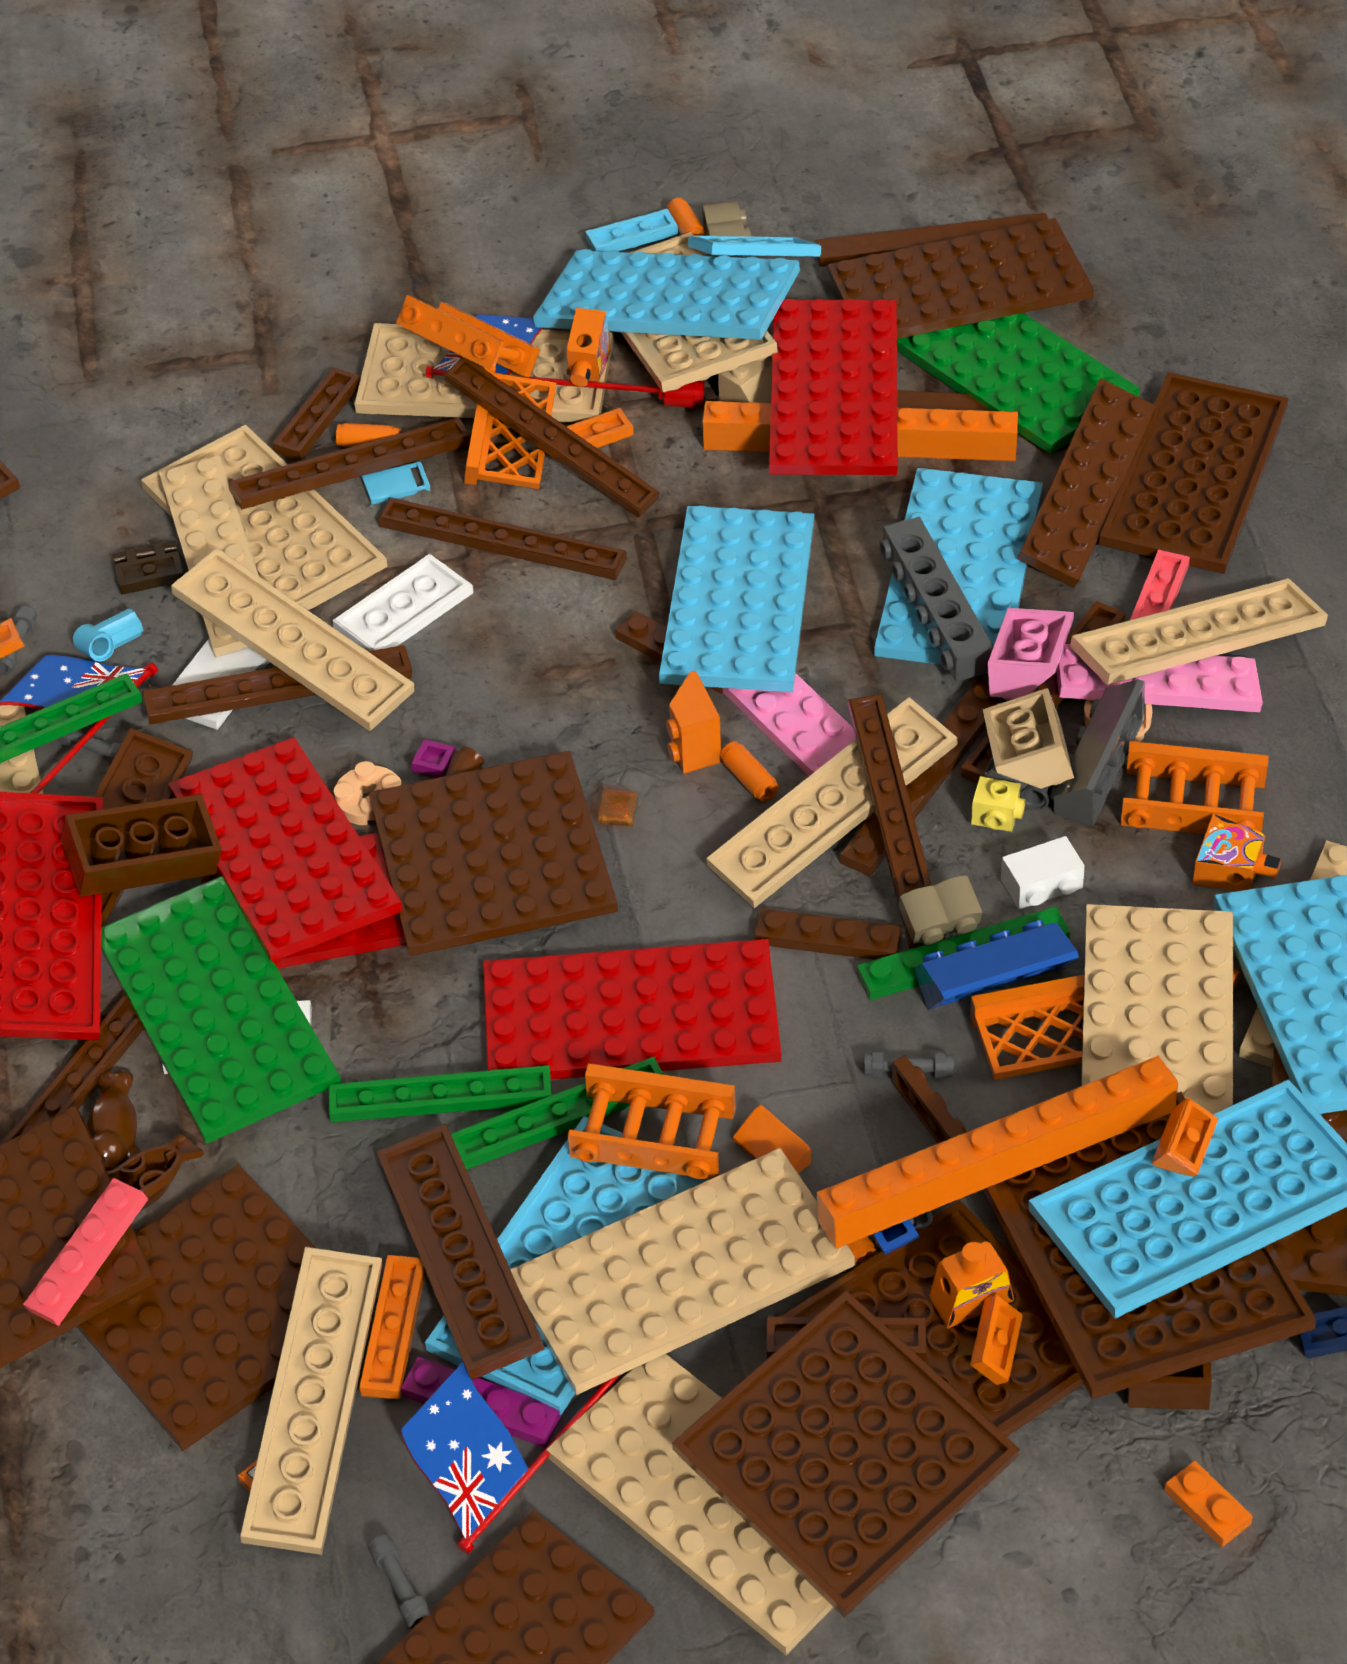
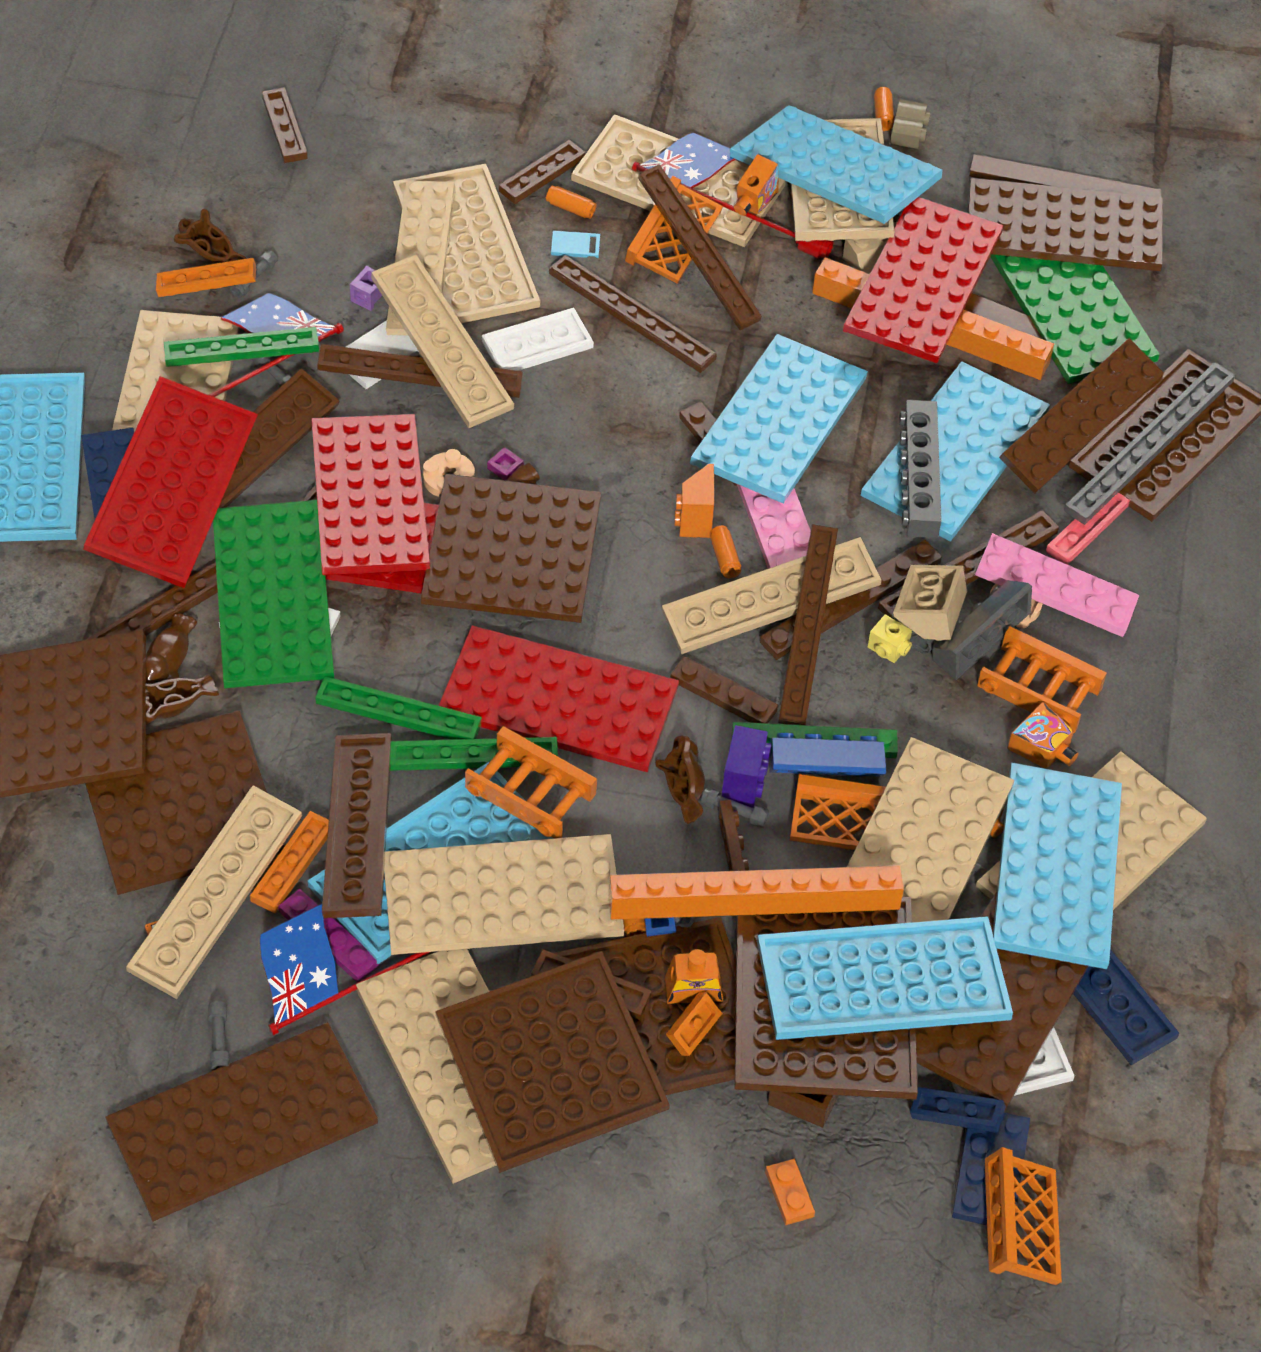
camera: 15 degrees right, 5 degrees up
(85, 1252) = (105, 735): coral plate -> none
(107, 635) = (319, 292): medium azure piece -> none
(140, 845) = (267, 458): reddish brown brick -> none
(147, 567) = (369, 249): dark brown plate -> none
(165, 612) = (363, 290): none -> medium lavender brick
(349, 463) = (545, 219): reddish brown plate -> none
(468, 336) = (670, 149): orange fence -> none
(604, 428) = (742, 253): orange plate -> none
(618, 807) = (618, 546): clear orange plate -> none
(633, 232) = (839, 103): medium azure plate -> none
(754, 245) = (920, 145): medium azure tile -> none
(766, 1133) = (608, 820): orange slope -> none
(832, 1049) = (684, 777): none -> reddish brown animal
(902, 1008) = (746, 765): none -> dark purple brick
(940, 910) = (808, 703): dark tan brick -> none
(1027, 650) = (965, 530): bright pink slope -> none
(1042, 872) = (898, 701): white brick -> none
(1180, 488) = (1148, 443): none -> plate
(1185, 1139) = (890, 932): orange slope -> none
(1198, 631) = (1103, 560): tan plate -> none

